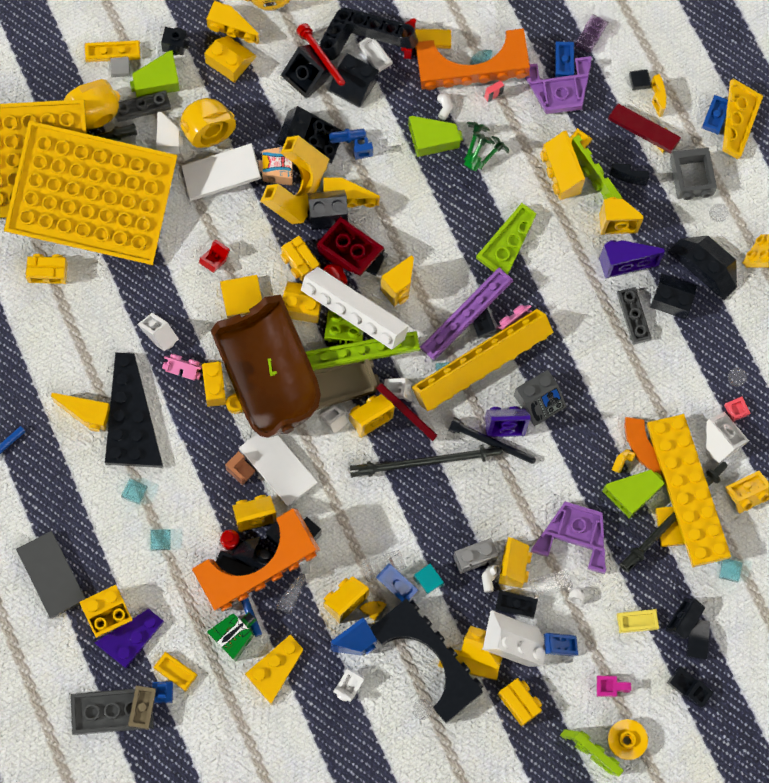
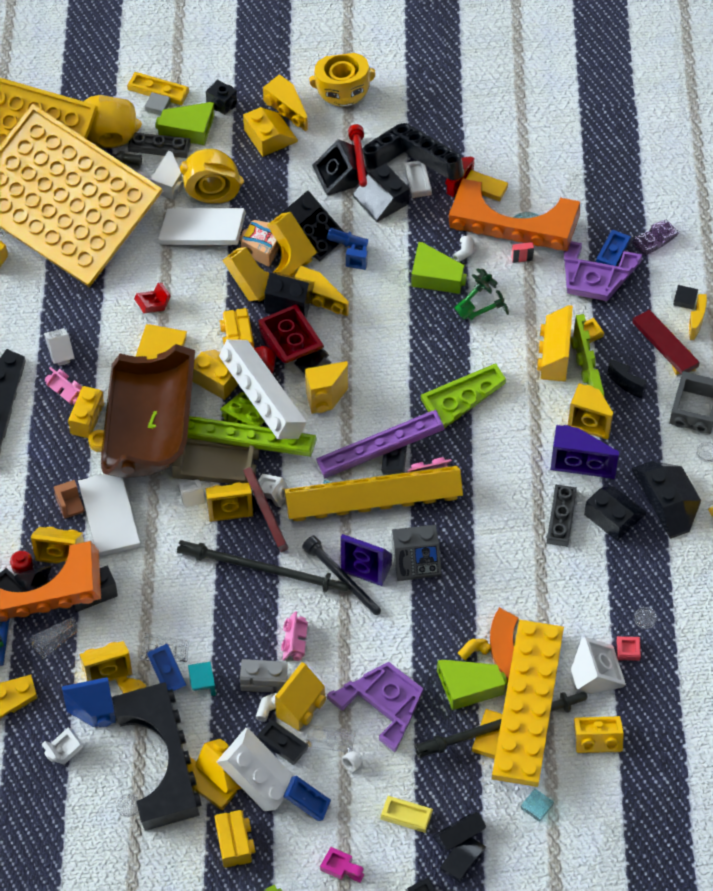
camera: 30 degrees right, 15 degrees down
(477, 503) = (291, 645): none -> bright pink hinge

